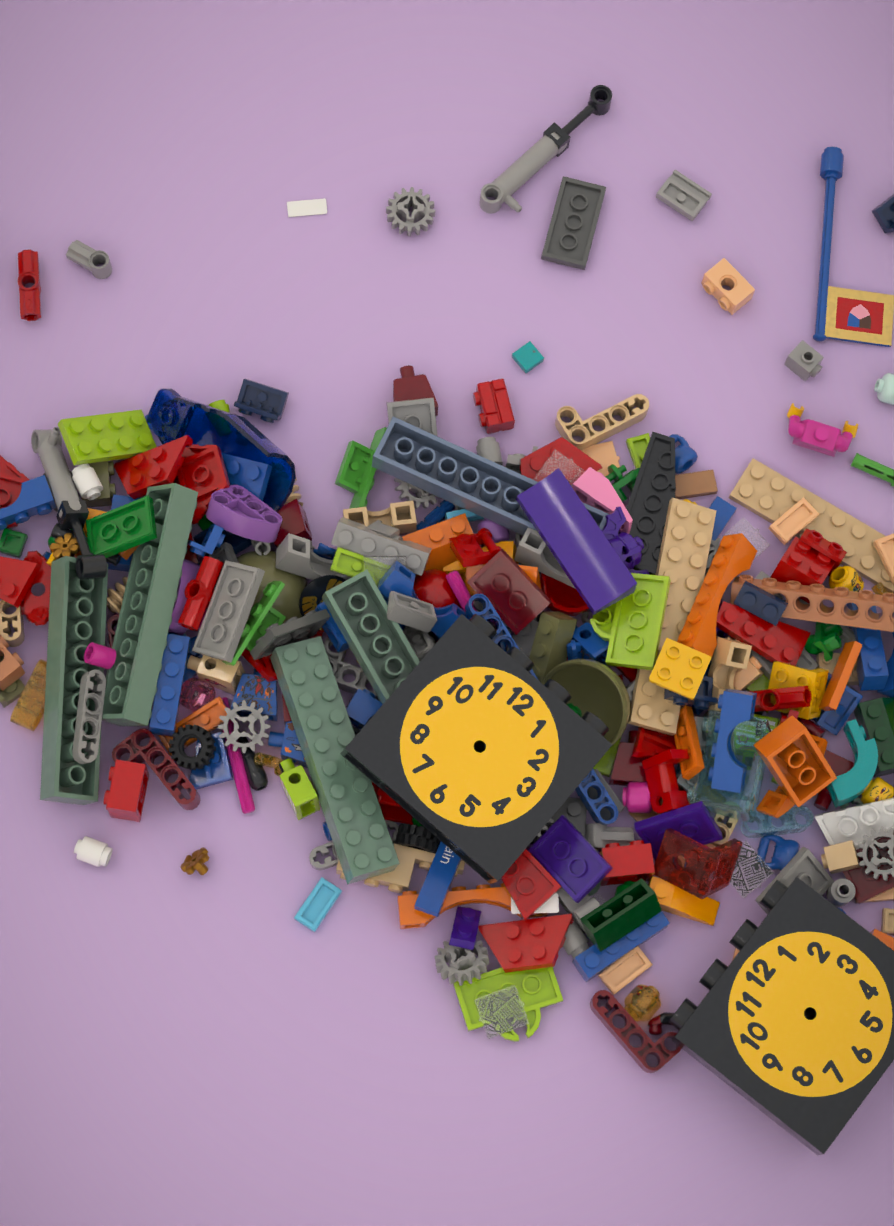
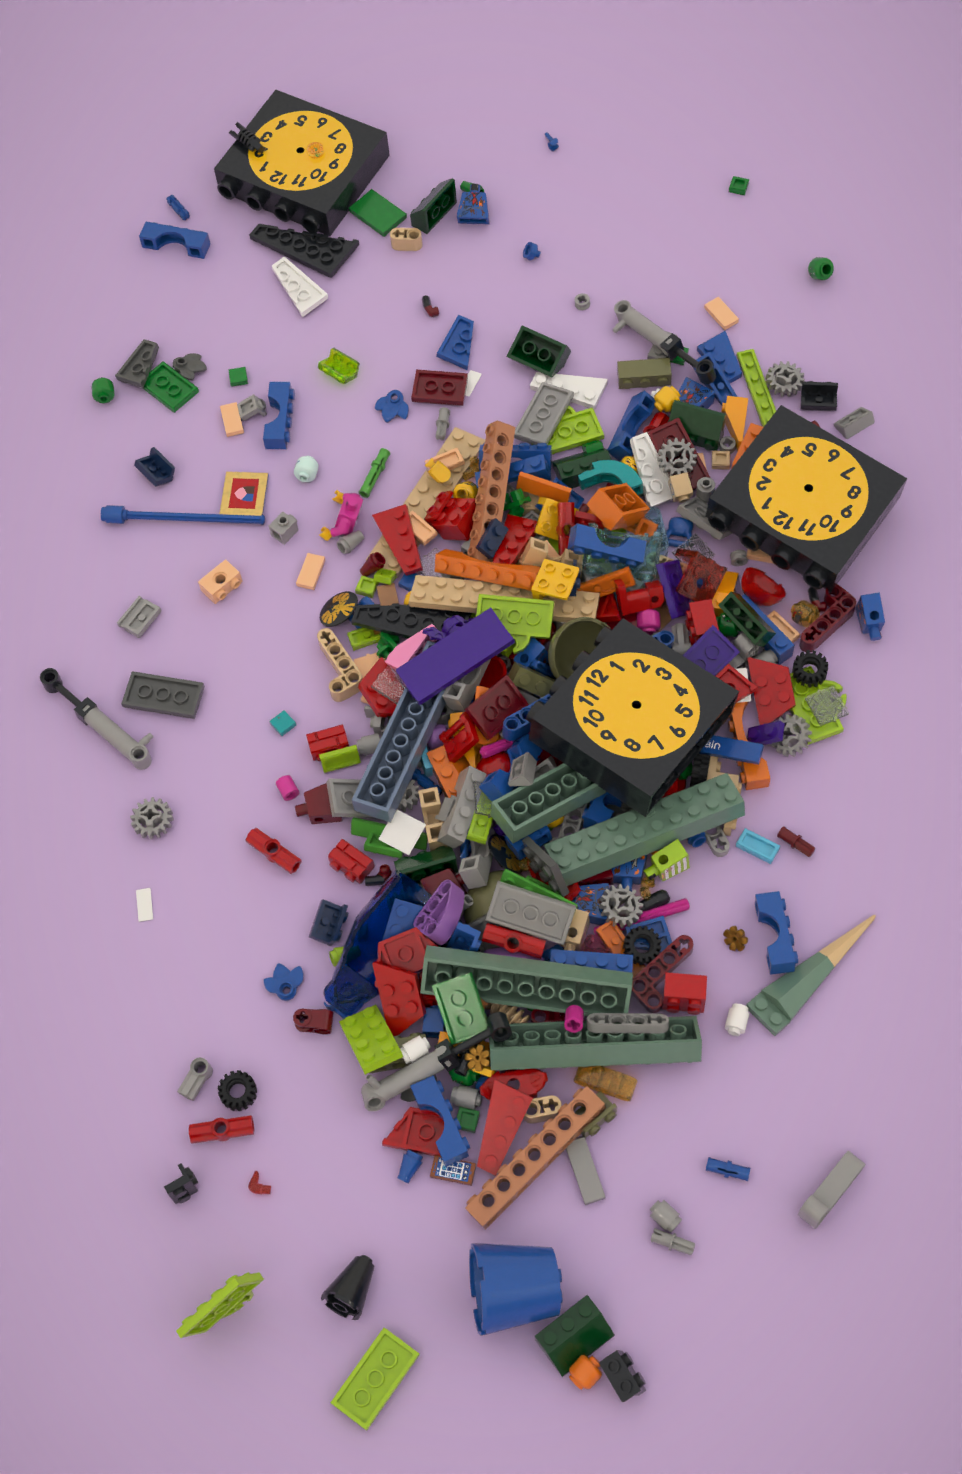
camera: 80 degrees left, 10 degrees down
(35, 539) = (466, 1097): none -> light grey brick
(78, 313) = (243, 1101): none -> black tyre
(118, 915) = (786, 996): none -> sand green plate
(143, 384) = (316, 1021): none -> dark red piece
(164, 910) = (770, 911): none -> blue arch
(199, 353) = (284, 979): none -> blue plate
(314, 461) = (380, 878): none -> arm
(317, 950) = (796, 841): none -> dark red axle
(319, 505) = (427, 863): none -> dark green slope
(335, 427) = (350, 861): none -> red brick
(363, 482) = (402, 832): none -> white sticker
(365, 332) = (281, 857): none -> red piece
(438, 359) = (287, 787): none -> dark pink gear
(471, 418) = (340, 758): none -> lime tile
(564, 984) = (810, 678): none -> black tyre
(641, 1088) = (870, 615): none -> blue torso
(680, 422) = (338, 609): none -> shield
(681, 948) = (761, 588): none -> red cylinder
(715, 459) = (366, 586): none -> lime tile
(726, 480) = (385, 576): none -> lime tile
(732, 925) = (738, 558): none -> light grey bush
(741, 393) = (310, 571): none -> light nougat tile
(742, 465) = (373, 563): none -> dark red cone
(780, 440) = (350, 541): none -> light grey cone
(780, 496) = (400, 536): none -> red wing
(876, 546) = (438, 471): none -> yellow arm

